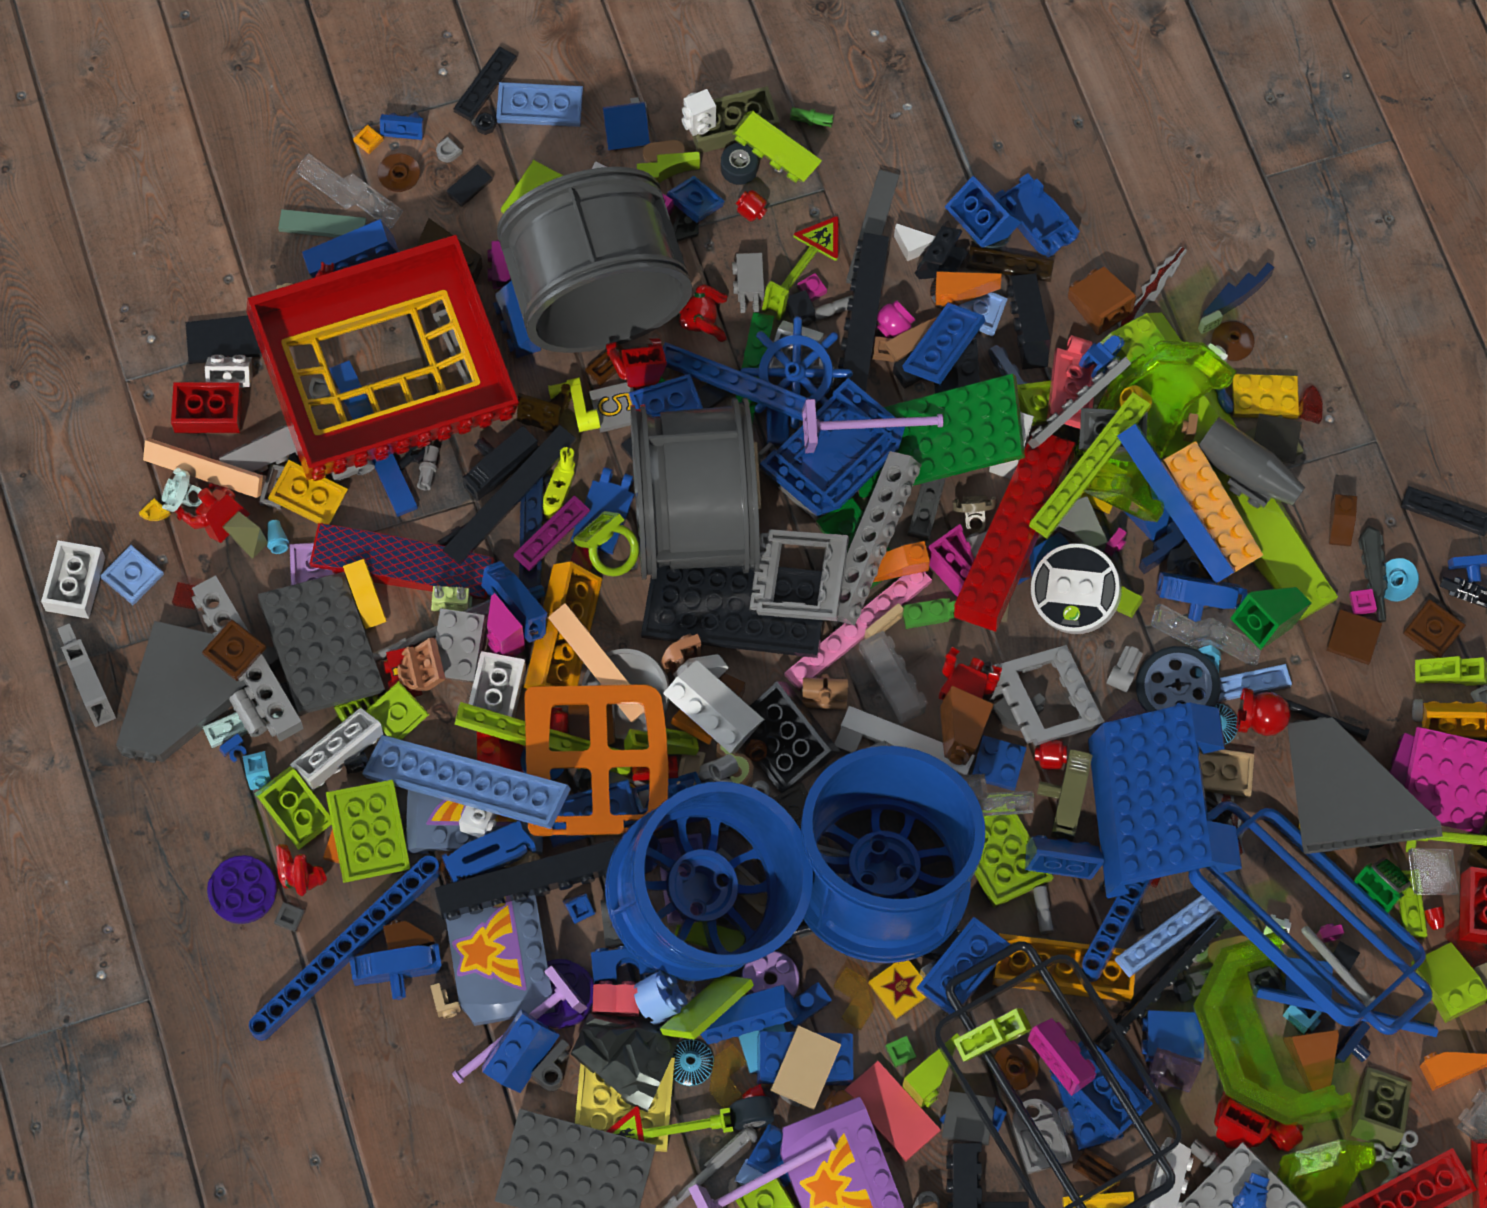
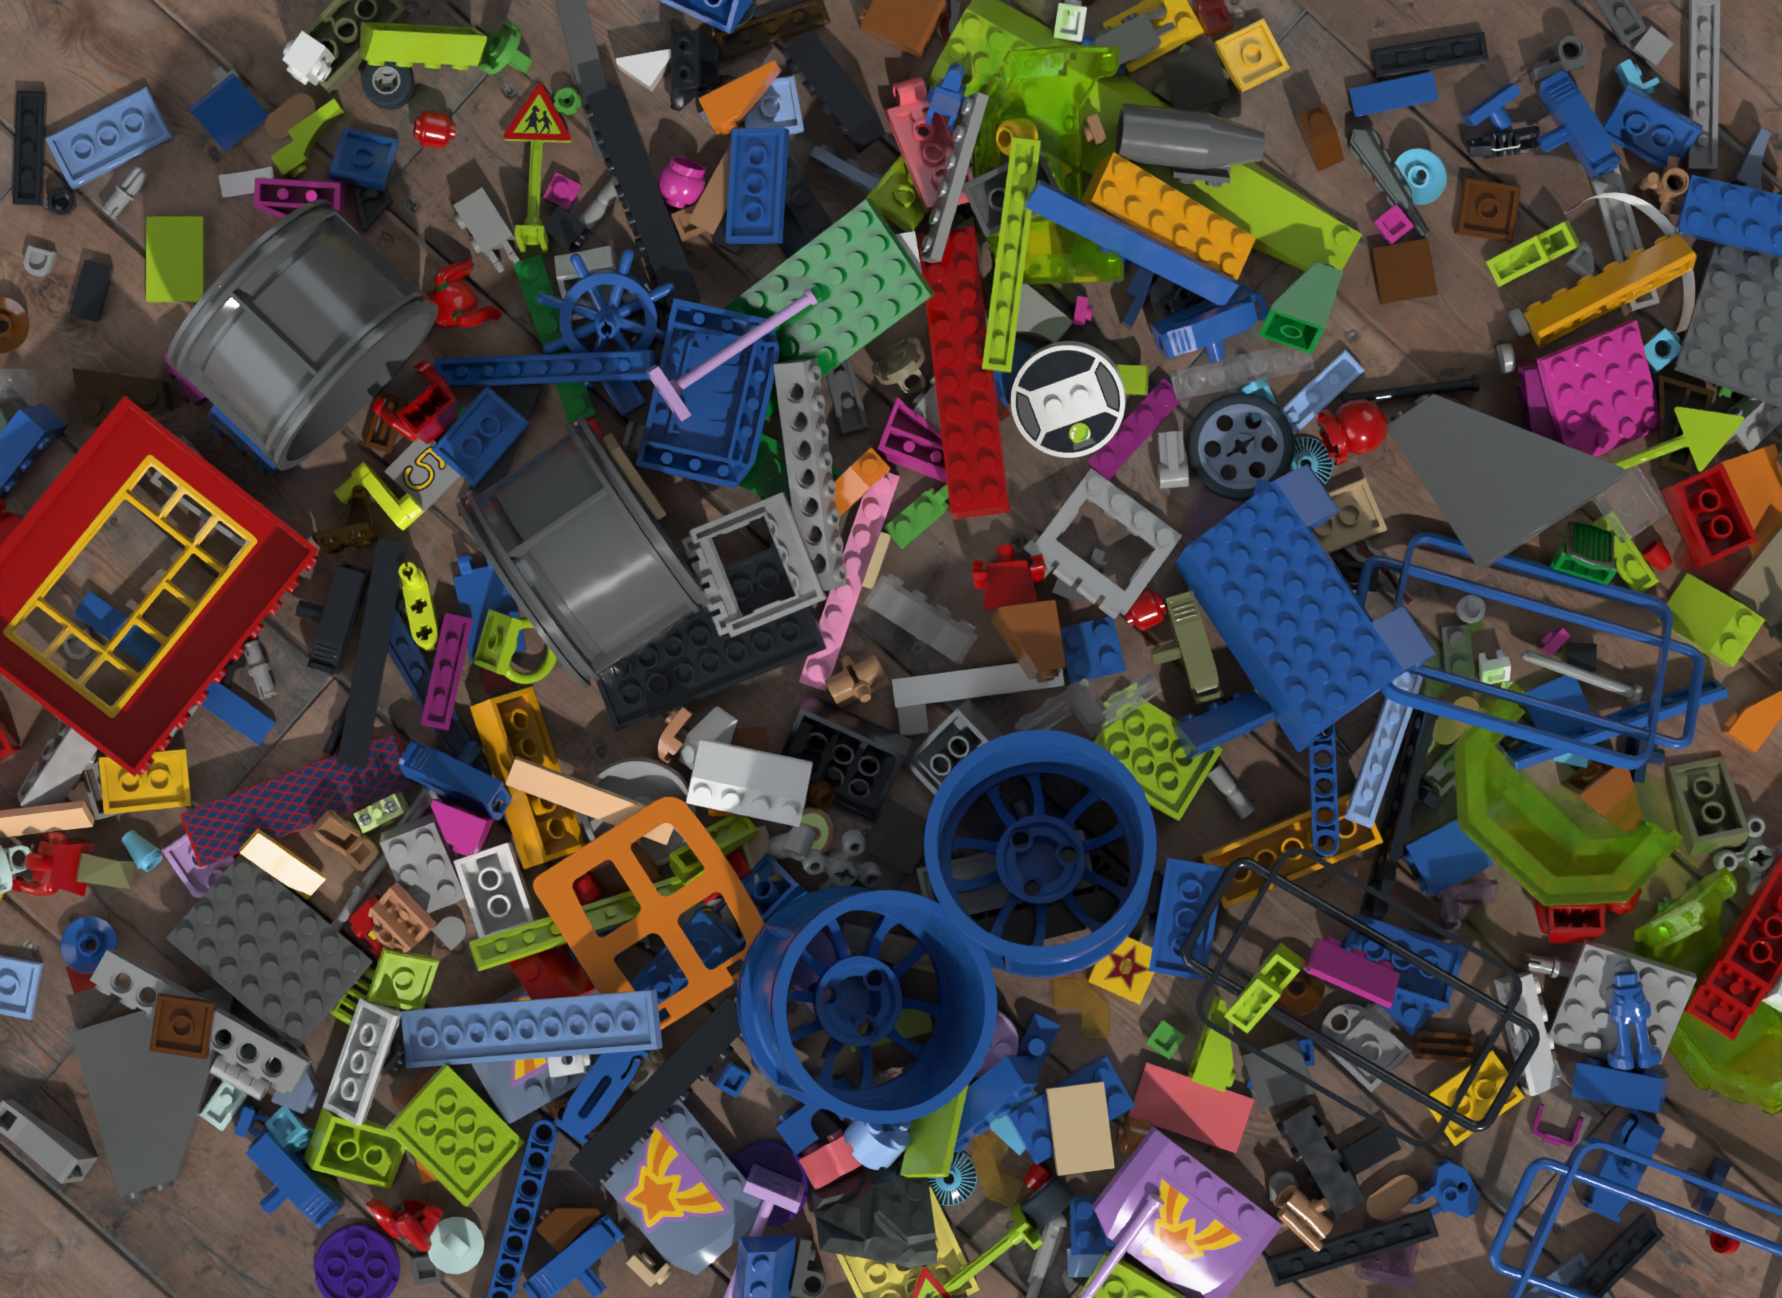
camera: 25 degrees left, 20 degrees up
(201, 568) = (77, 938): none -> blue dish
(238, 803) = (293, 1180): none -> blue piece
(279, 752) = (304, 1096): none -> sand blue slope
(319, 910) = (456, 1245): none -> light aqua tile
(416, 599) = (346, 838): none -> medium nougat animal
(448, 703) = (451, 931): none -> light grey tile
(529, 139) = (125, 192): none -> light grey axle
(826, 182) = (502, 50): none -> bright green tile
(848, 230) = (561, 95): none -> bright green plate
(1111, 637) = (1135, 430): none -> magenta plate
(1249, 390) = (1135, 36): none -> dark grey hinge
(1262, 896) = (1457, 650): none -> dark grey plate
(1281, 882) = (1470, 609): none -> white tile
(1323, 446) = (1251, 56): none -> yellow tile
(1396, 729) = (1506, 358): none -> light grey tile
(1407, 522) = (1393, 94): none -> blue tile

